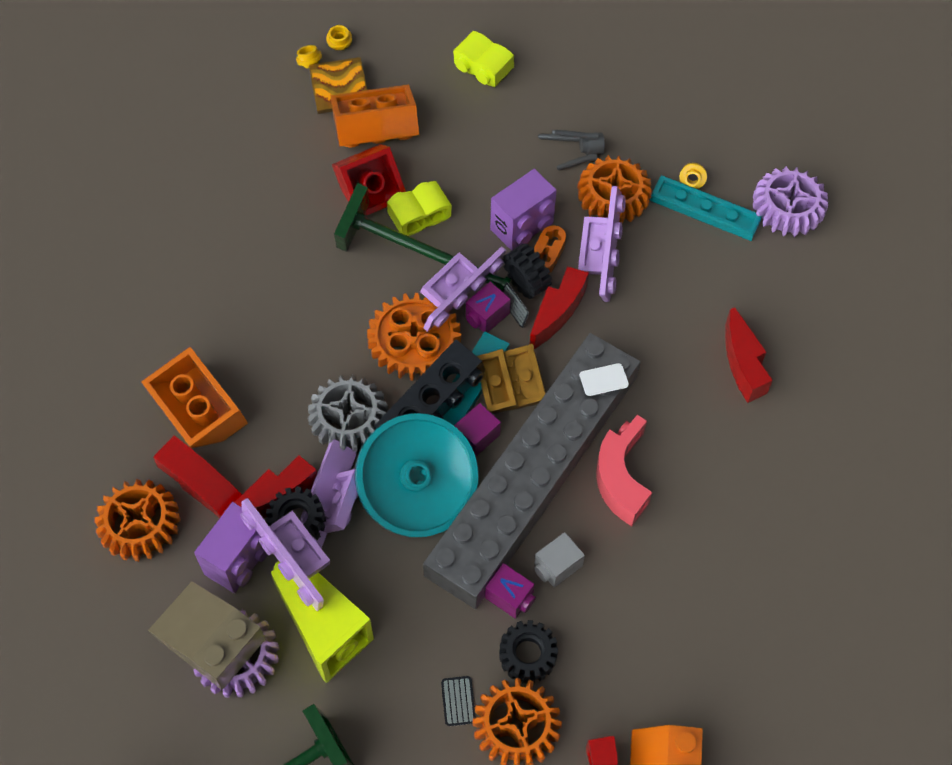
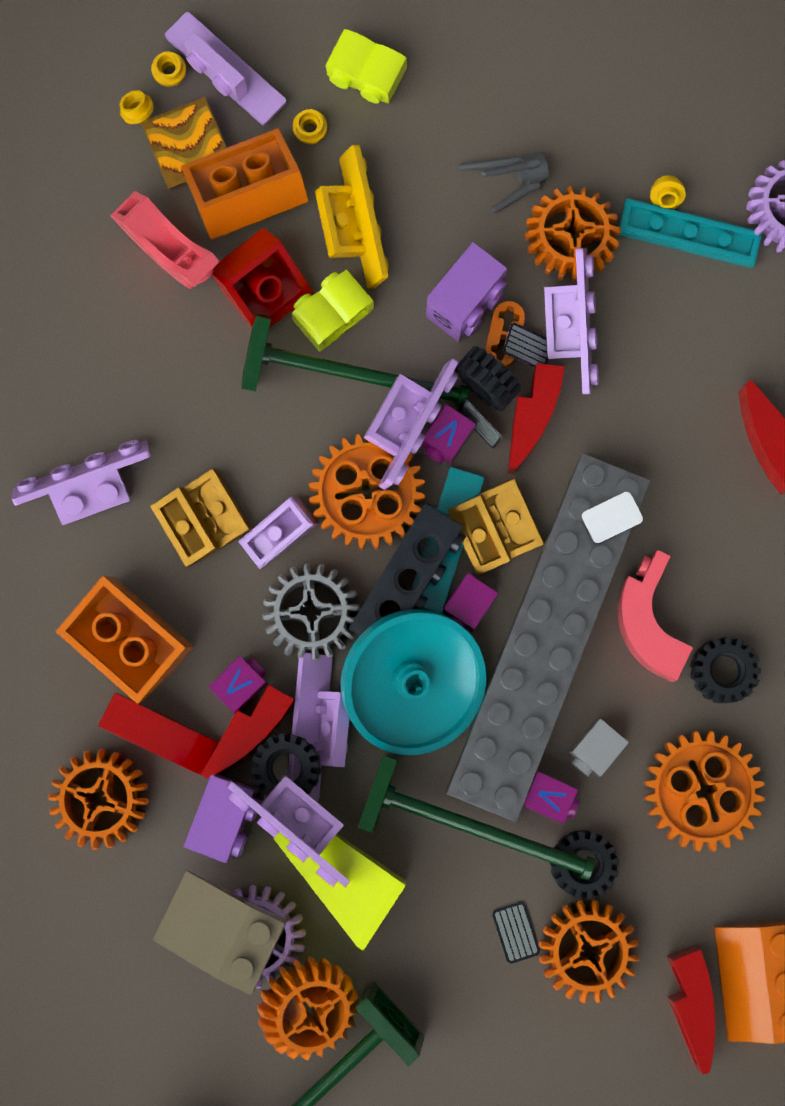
camera: 10 degrees left, 20 degrees up
(197, 295) = (86, 486): none -> lavender bracket
(247, 721) = (288, 1022): none -> orange gear
(275, 452) = (239, 683): none -> magenta brick
(280, 333) = (201, 517): none -> pearl gold slope
(303, 141) = (163, 241): none -> coral arch
(337, 353) = (278, 531): none -> lavender slope
(369, 554) = (384, 795): none -> dark green tile
(381, 45) = (225, 69): none -> lavender bracket
(432, 84) = (307, 117): none -> yellow plate
(447, 152) = (350, 219): none -> yellow bracket
(561, 256) = (526, 345): none -> light grey sticker
(669, 607) = (733, 777): none -> orange gear
(683, 505) = (746, 665): none -> black tyre

